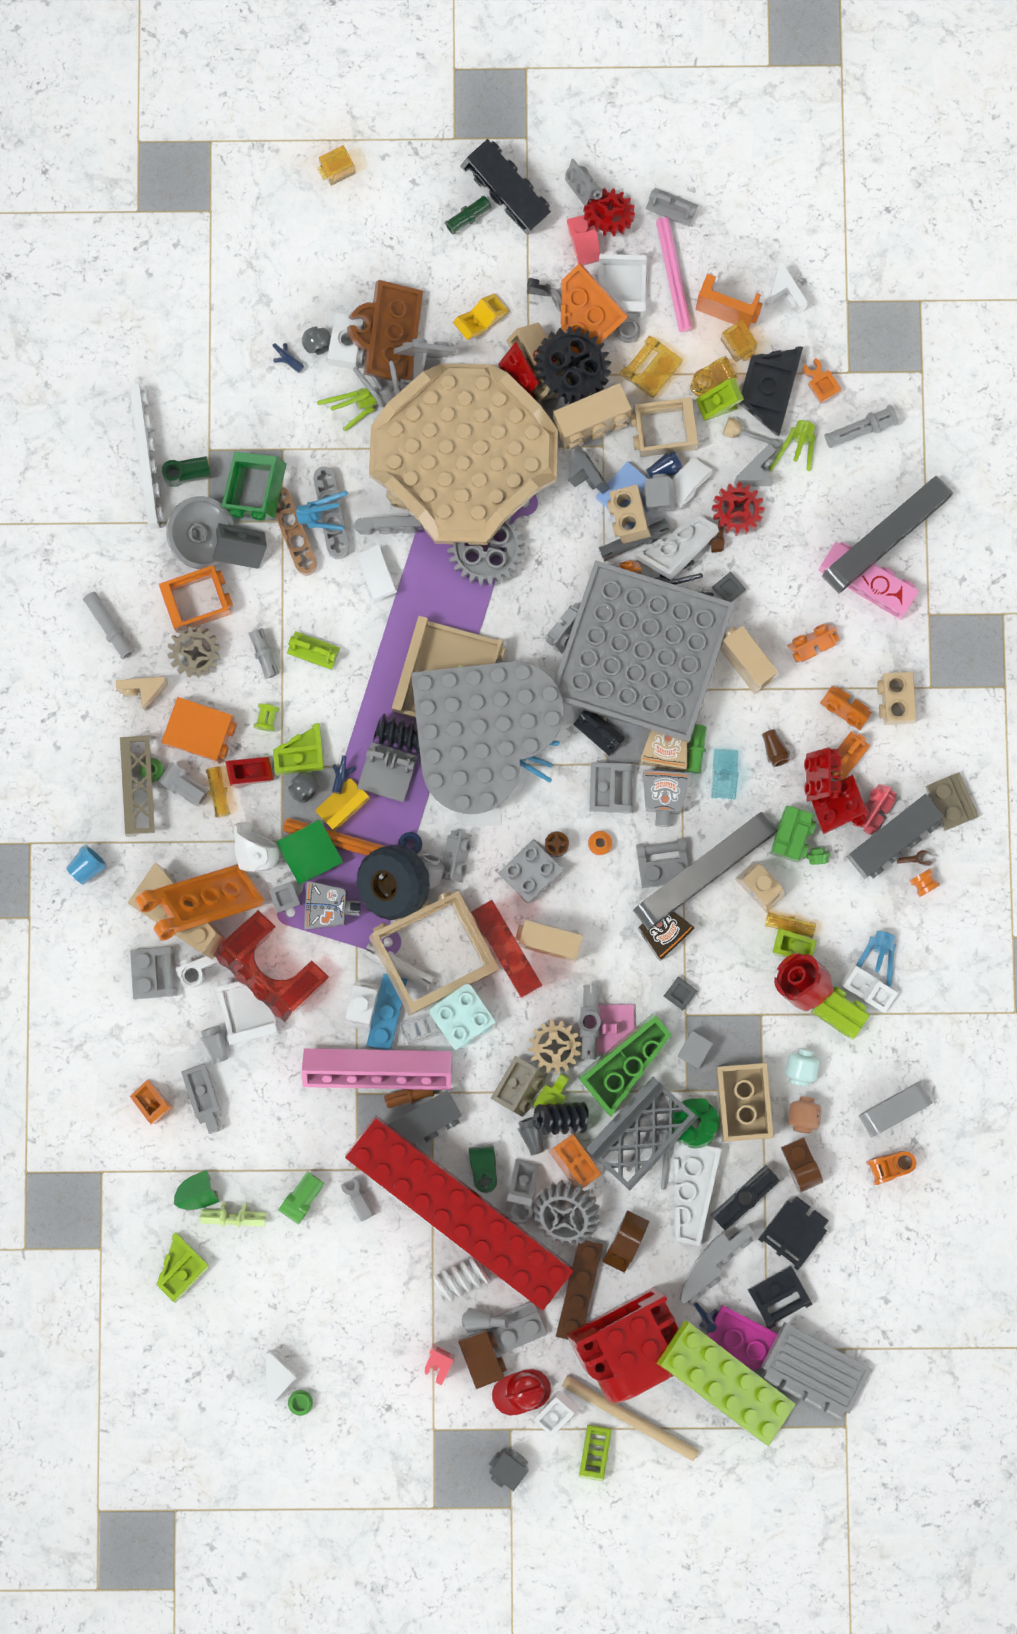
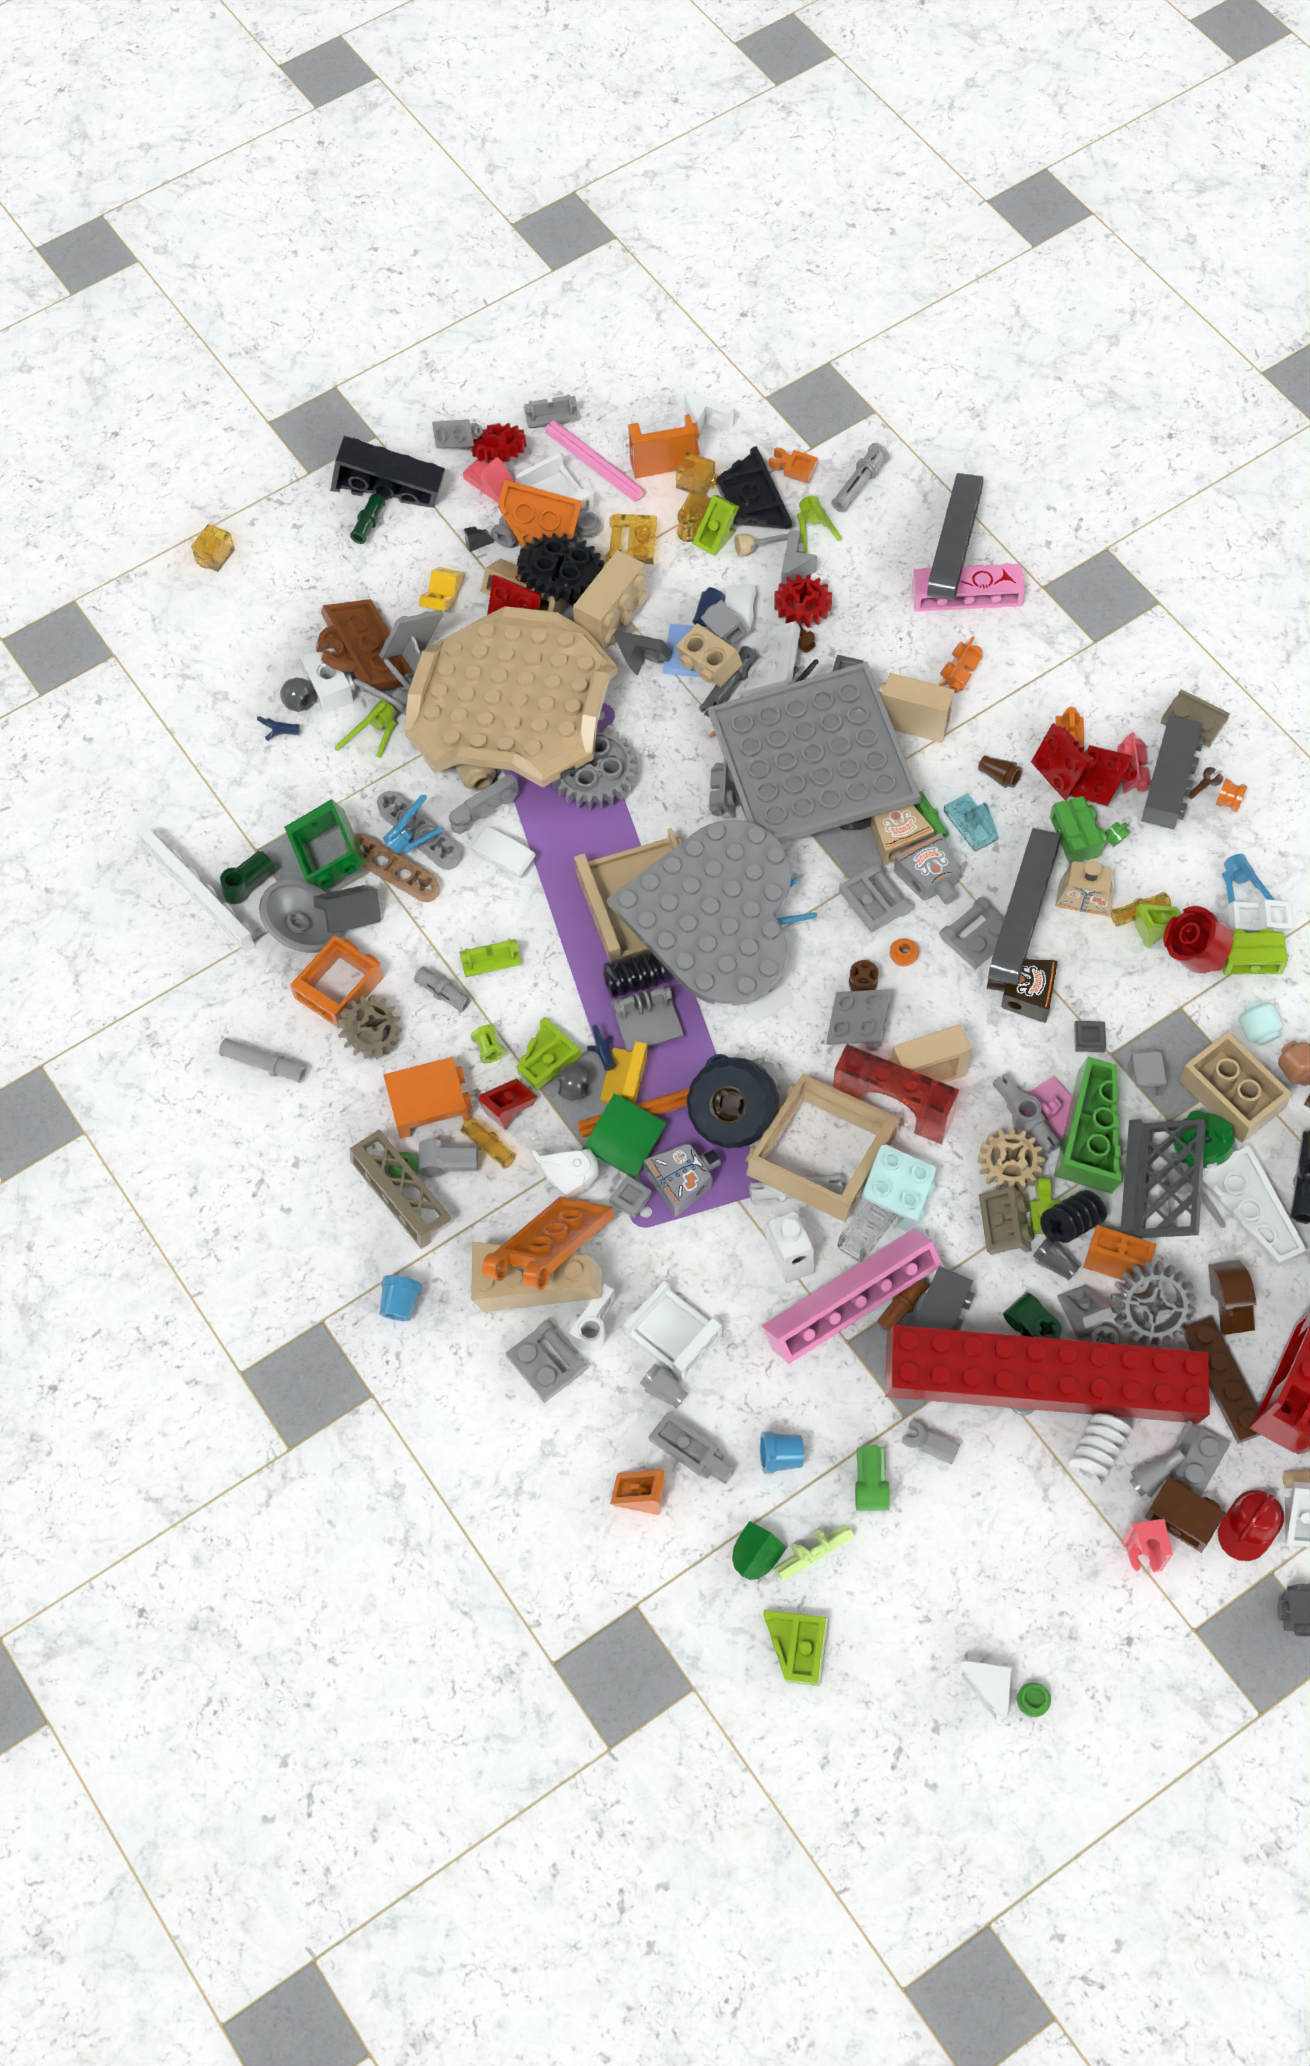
camera: 35 degrees left, 20 degrees down
(149, 688) = (344, 1090): tan slope -> none
(257, 1140) = (780, 1452): none -> dark azure piece
(281, 996) = (699, 1282): clear red arch -> none
(385, 1015) = (827, 1256): dark azure plate -> none
(460, 845) = (769, 1039): light grey hinge -> none
(599, 731) = (823, 858): black hinge -> none
(684, 405) = (700, 558): tan window -> none
(854, 714) = (1035, 700): orange hinge -> none
(904, 698) = (1080, 667): tan brick -> none

